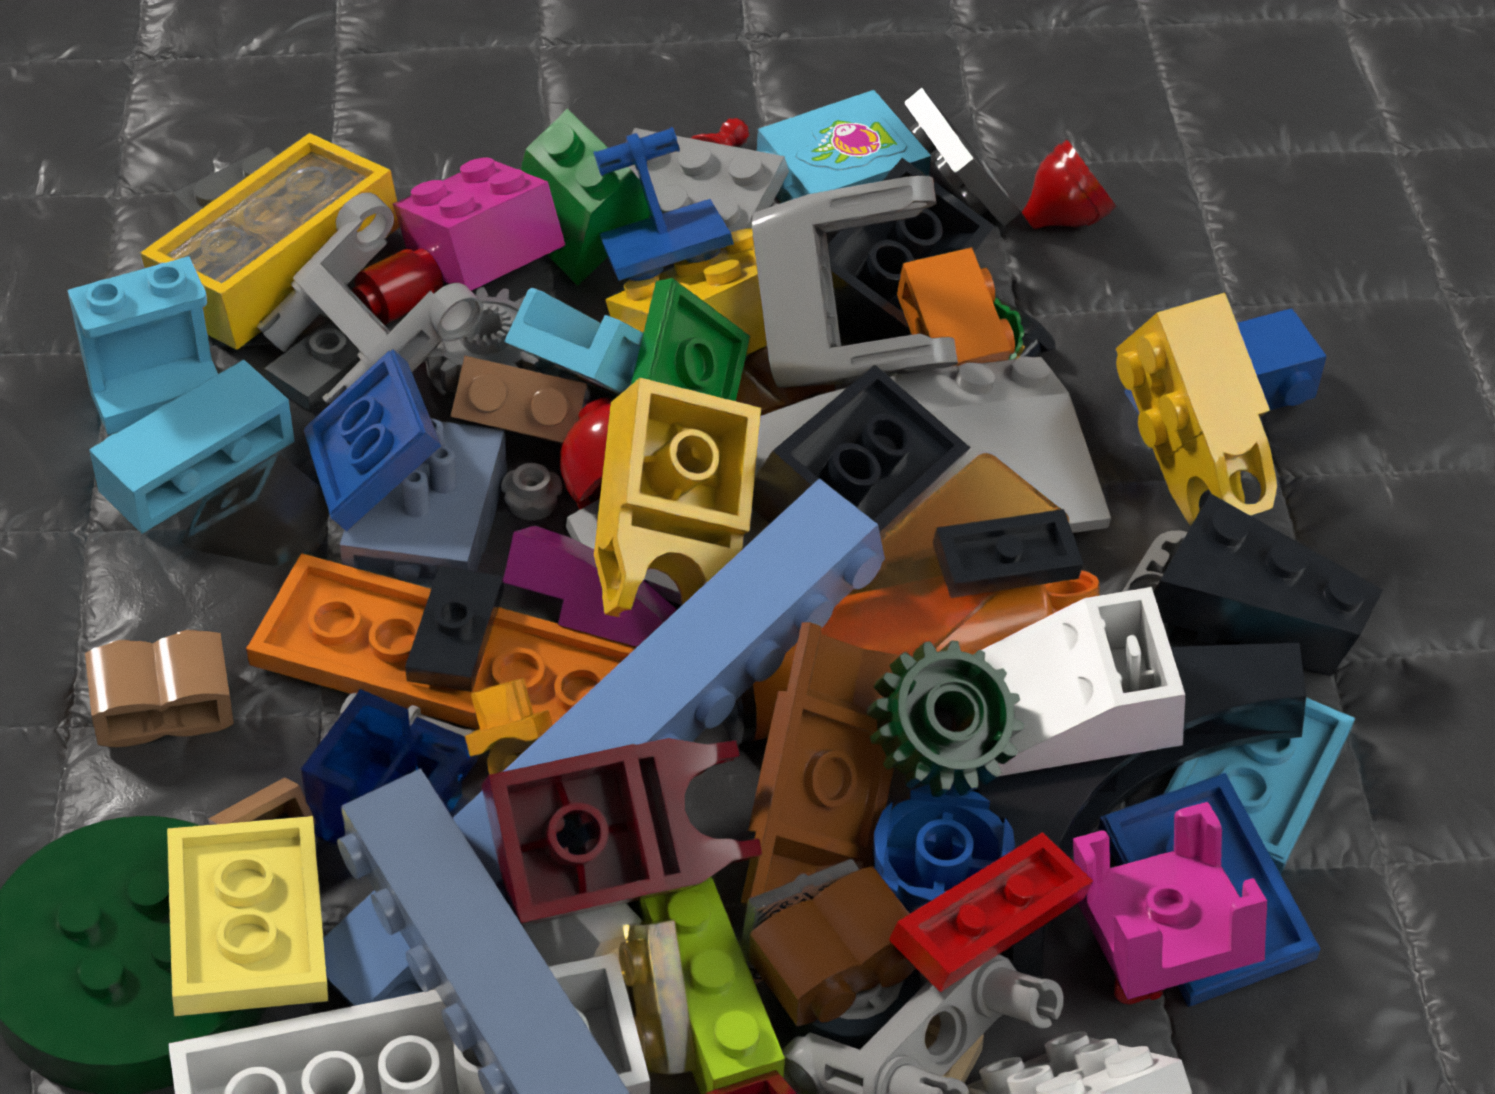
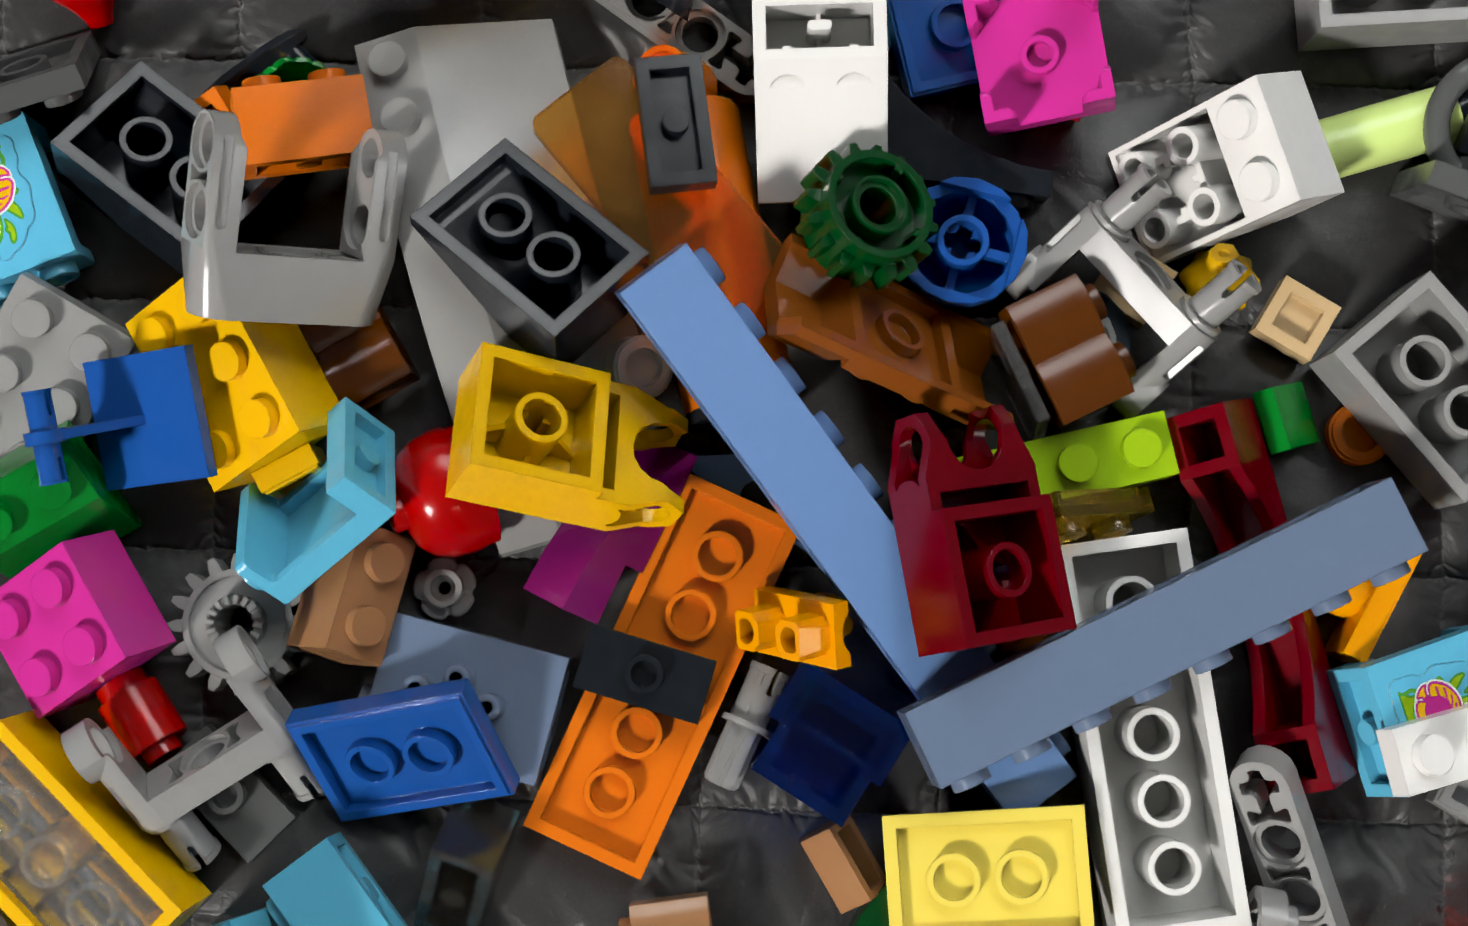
camera: 80 degrees left, 35 degrees up
(690, 344) = (360, 410): green tile -> none
(990, 911) = (1061, 209): red plate -> none

